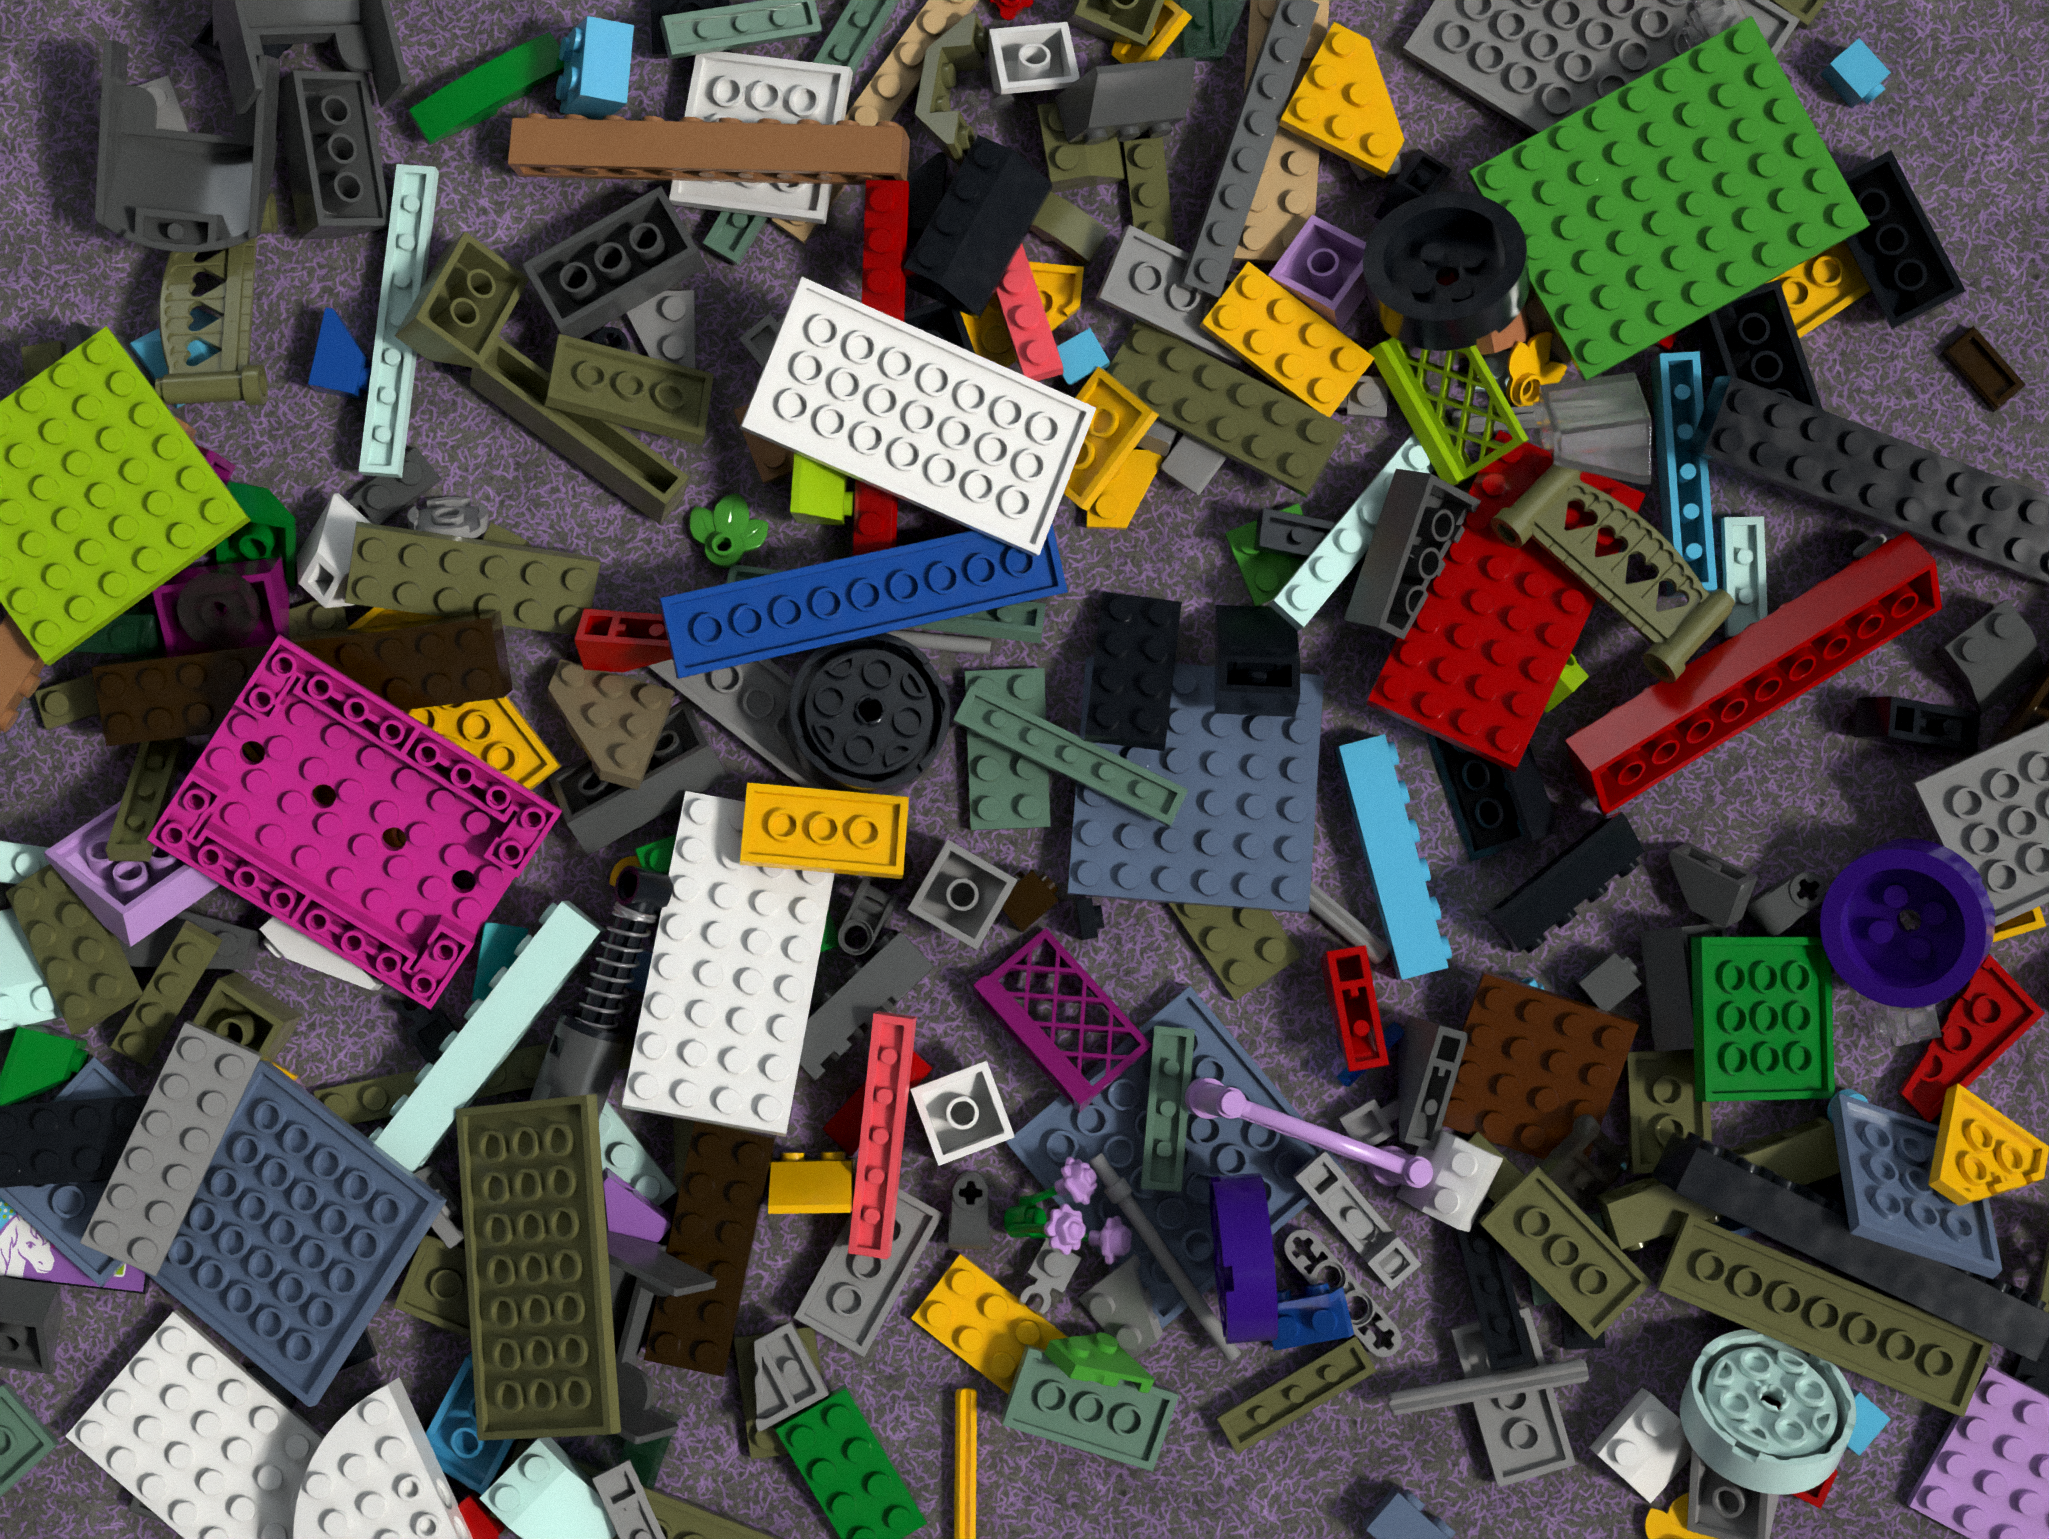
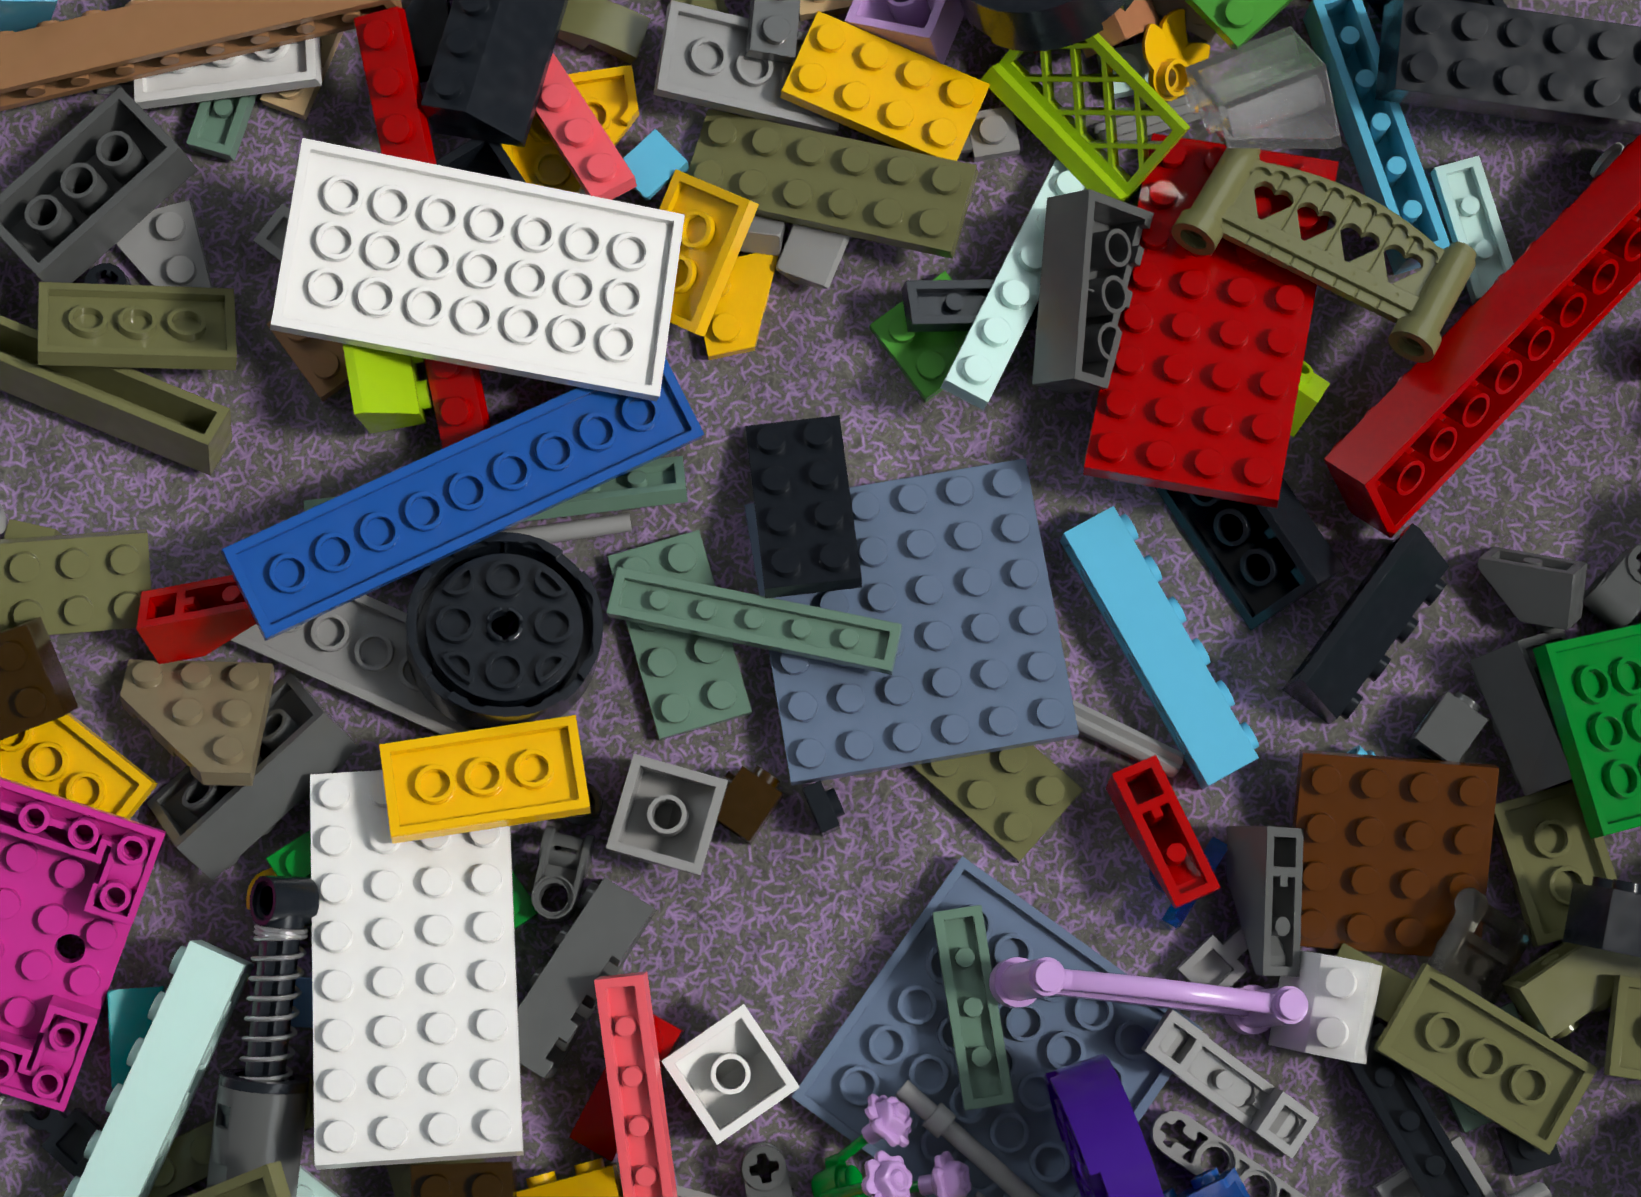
camera: 15 degrees left, 5 degrees down
(727, 524) = (289, 457): bright green plate -> none
(1034, 1041) = (797, 969): magenta fence -> none
(1255, 662) = (943, 461): black slope -> none

